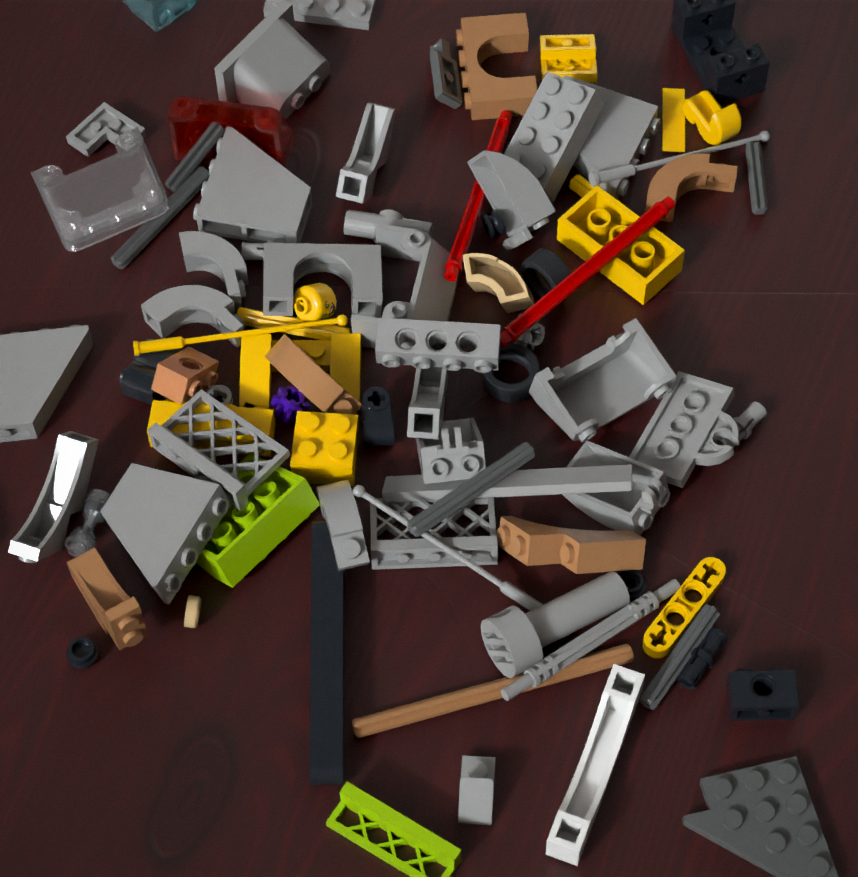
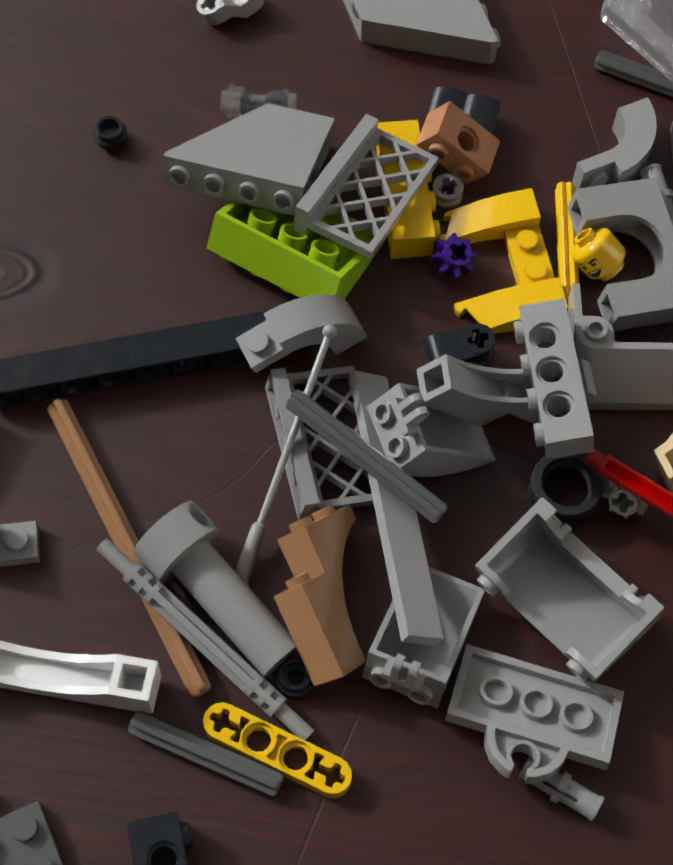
camera: 75 degrees right, 5 degrees up
(60, 497) = (280, 64): light grey arch -> none
(110, 604) = (144, 139): medium nougat arch -> none
(179, 342) = (497, 126): yellow piece -> none
(192, 304) = (559, 130): light grey arch -> none
(192, 611) = (172, 218): tan tile -> none
(311, 378) = (478, 260): medium nougat arch -> none
(325, 447) = (403, 302): yellow brick -> none
(702, 658) = (206, 782): black pin -> none

